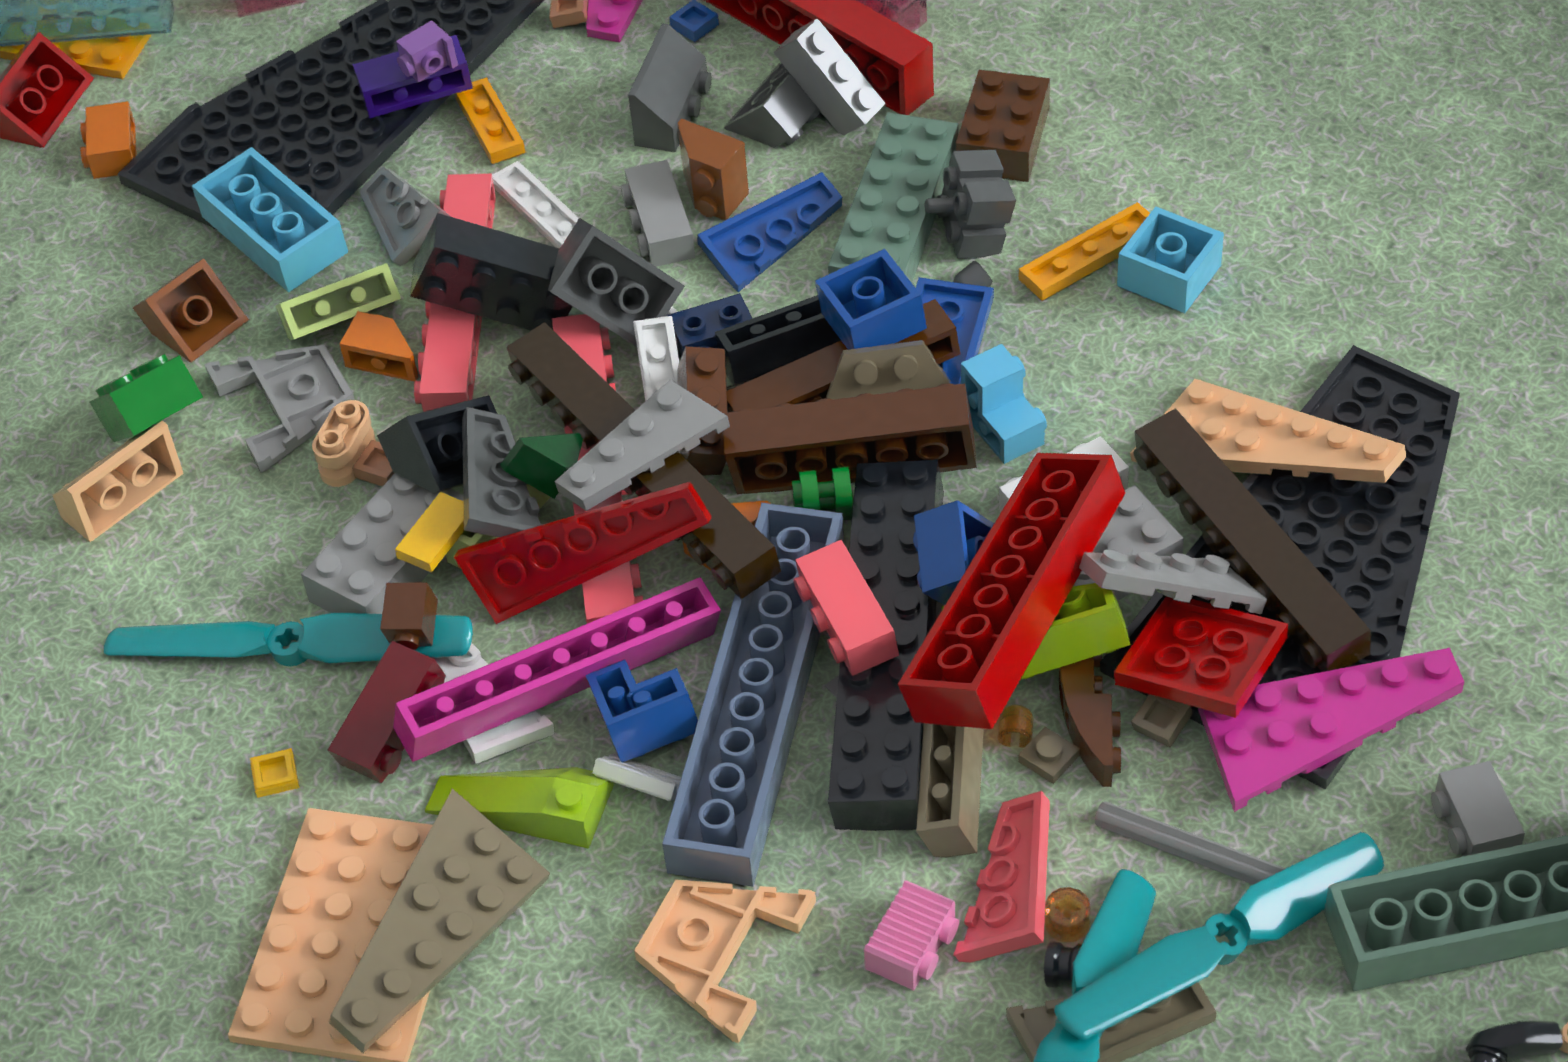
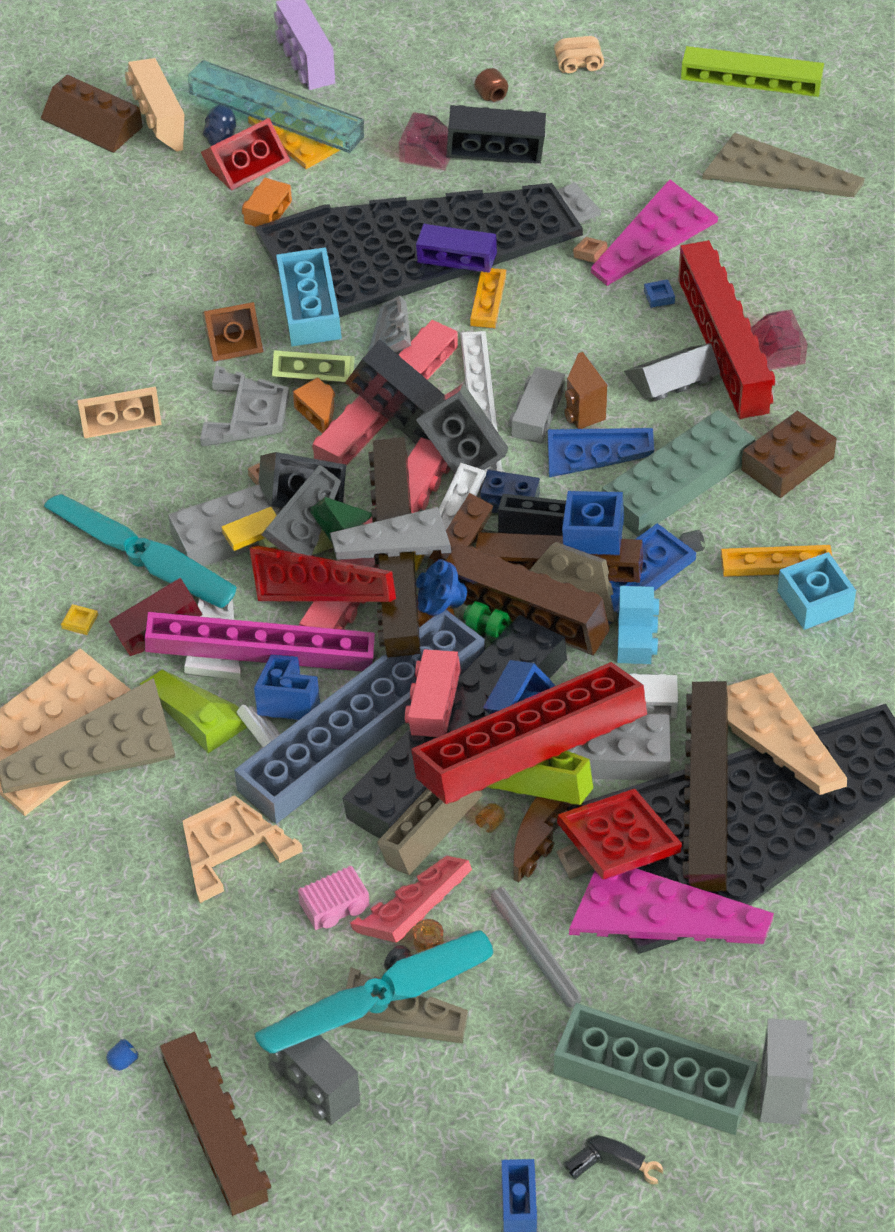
camera: 30 degrees right, 0 degrees up
(144, 396) = (160, 369): green brick -> none
(342, 442) = (247, 449): light nougat brick -> none
(409, 614) = (201, 568): reddish brown brick -> none
(425, 51) = (464, 236): medium lavender brick -> none
(667, 90) = (601, 328): dark grey slope -> none
(743, 476) = (440, 588): none -> blue plate
(829, 77) = (698, 370): light grey brick -> none
(974, 203) = (721, 493): dark grey brick -> none
(1049, 755) = (496, 844): dark tan plate -> none
(1173, 577) = (634, 778): light grey wing -> none
(1184, 958) = (527, 998): teal piece -> none
(1476, 810) = (710, 1014): light grey brick -> none

